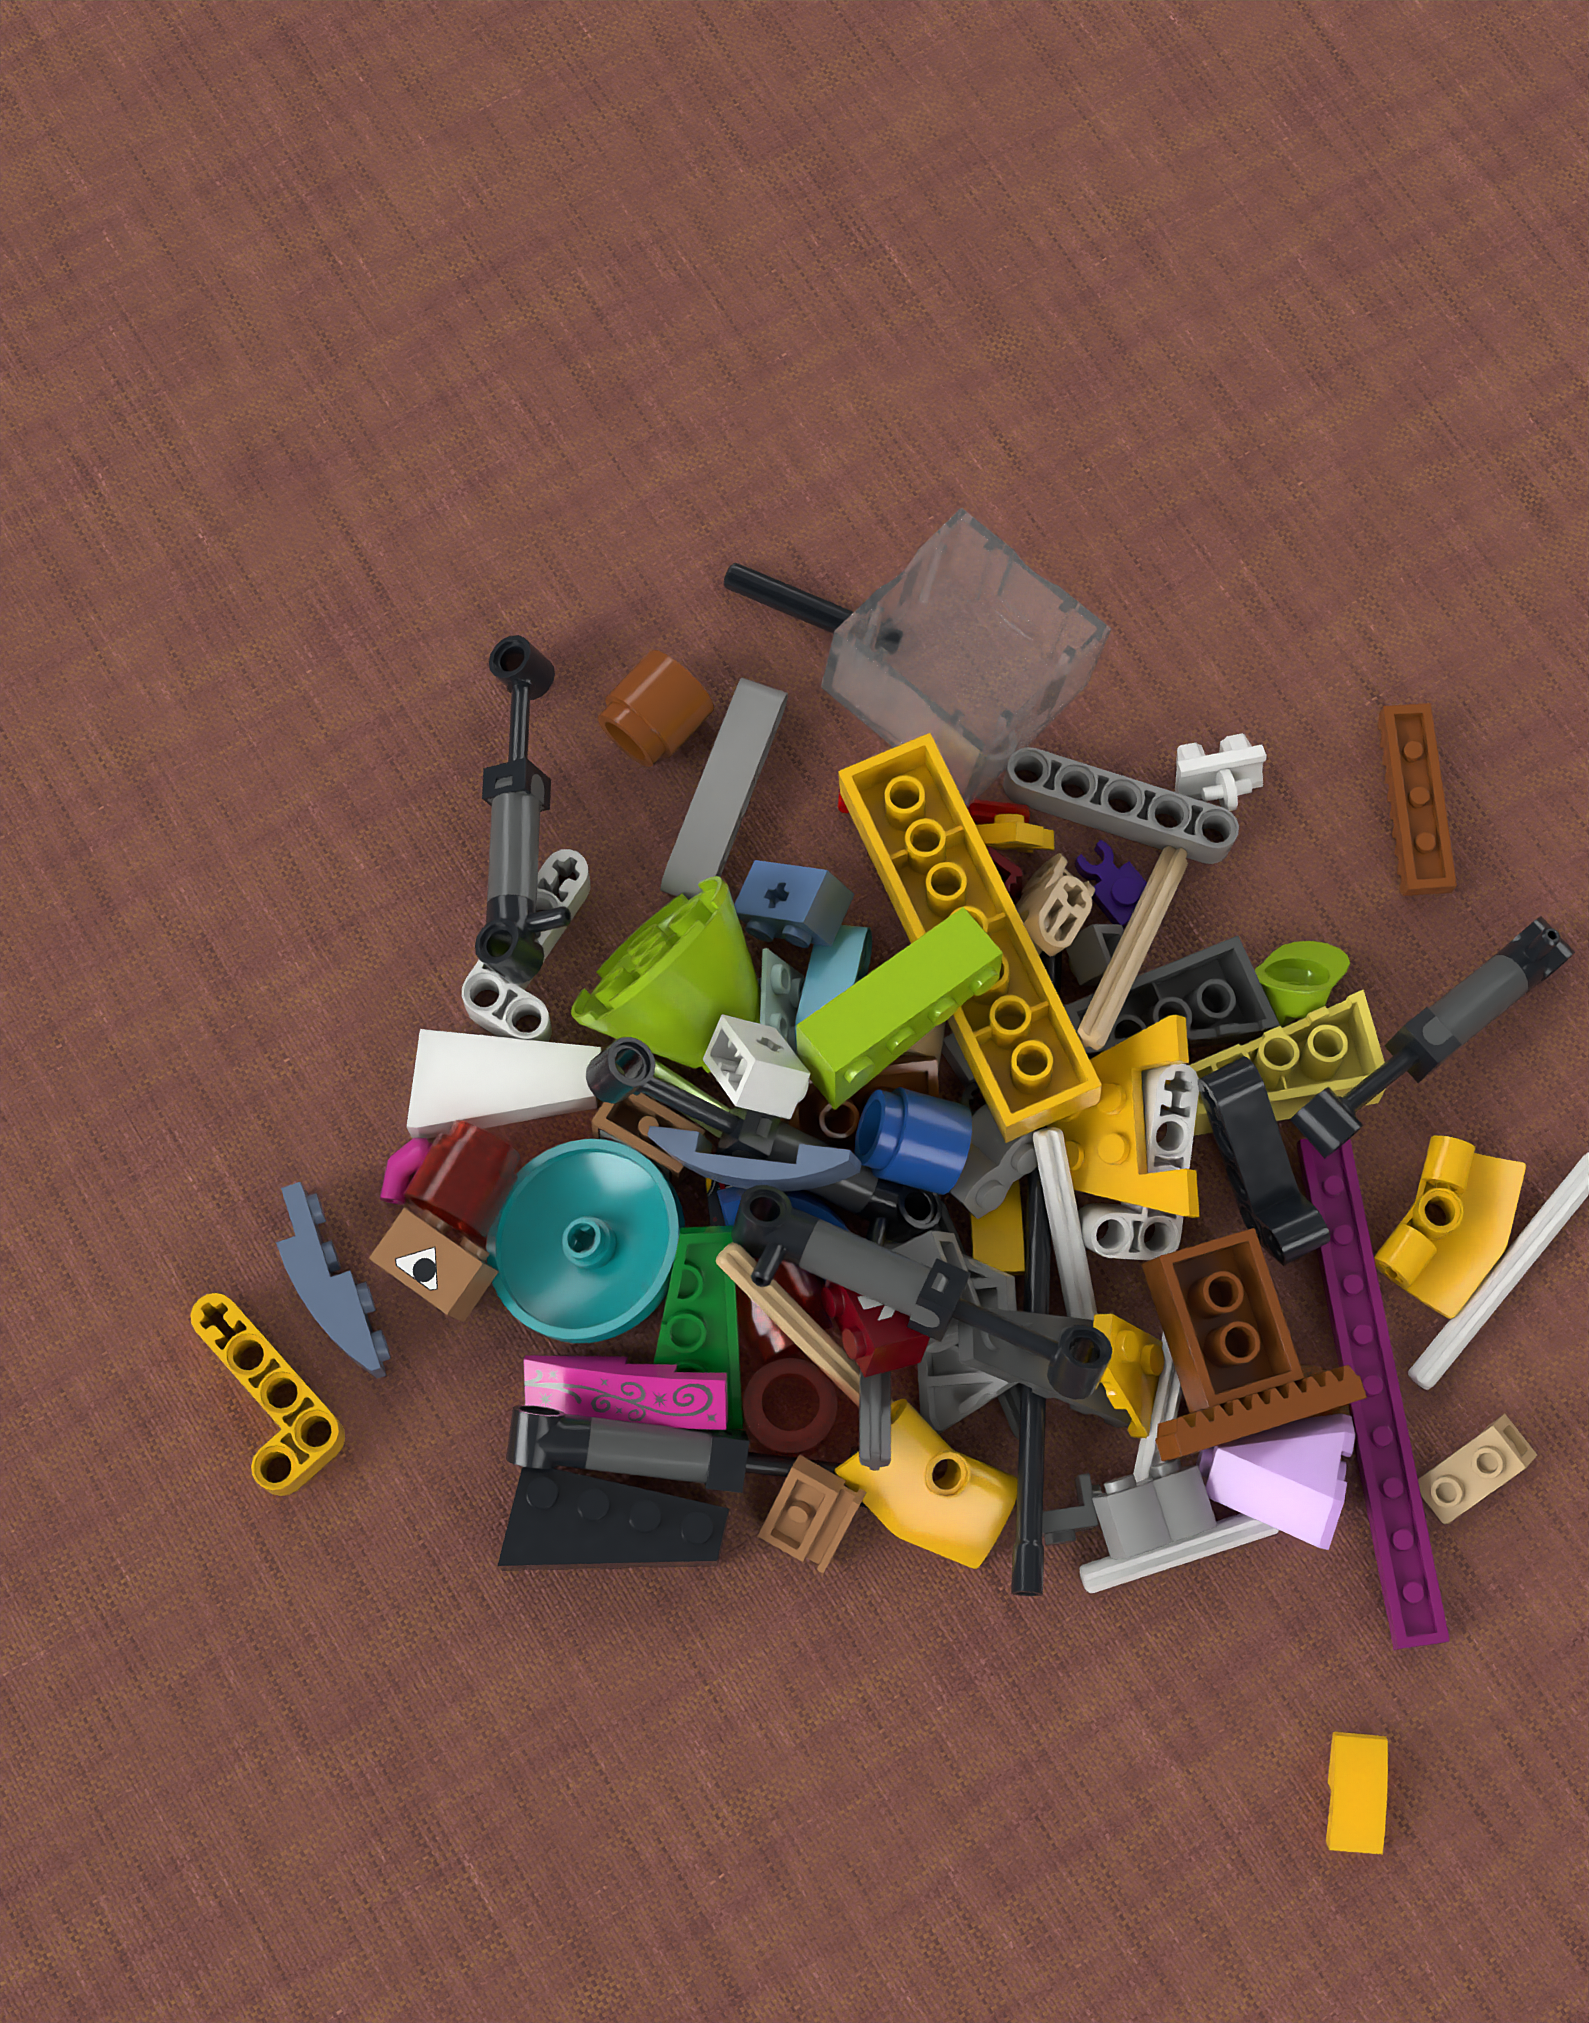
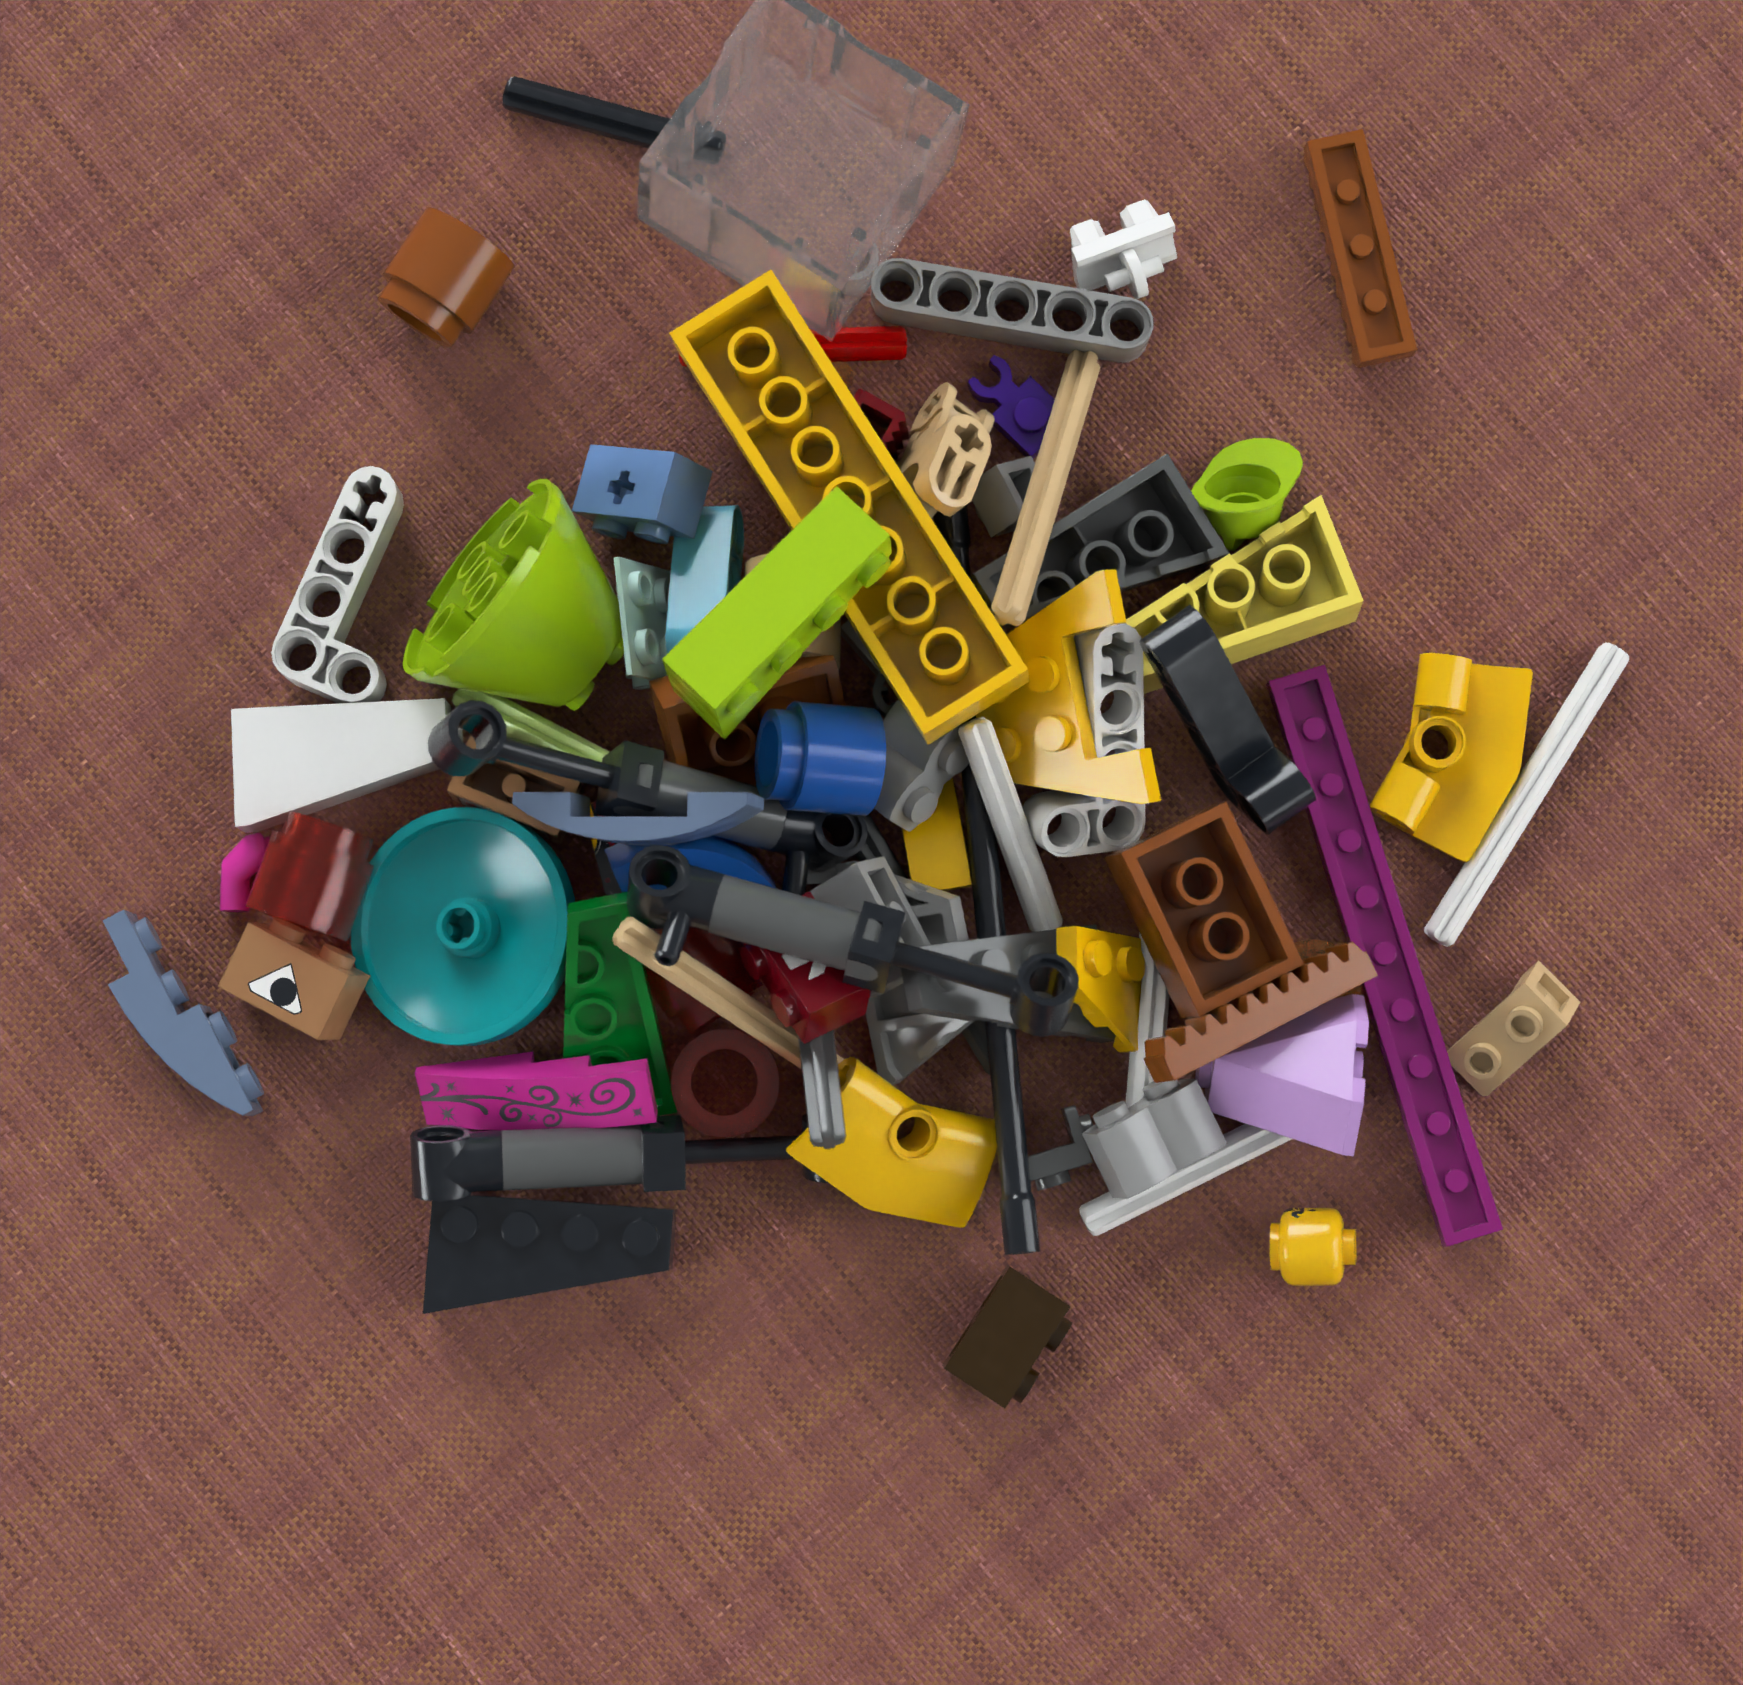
camera: 10 degrees left, 10 degrees up
(262, 1384) = (121, 1150): yellow beam -> none
(516, 798) = (298, 412): black piece -> none
(725, 788) = (542, 360): light grey beam -> none
(756, 1067) = (625, 706): white brick -> none
(811, 1513) = (767, 1198): medium nougat plate -> none
(1003, 1669) = (1008, 1337): none -> dark brown brick
(1012, 833) = (887, 366): yellow plate -> none
(1279, 1631) = (1311, 1246): none -> yellow head
(1357, 1793) = (1419, 1410): yellow slope -> none
(1440, 1031) = (1417, 529): black piece -> none

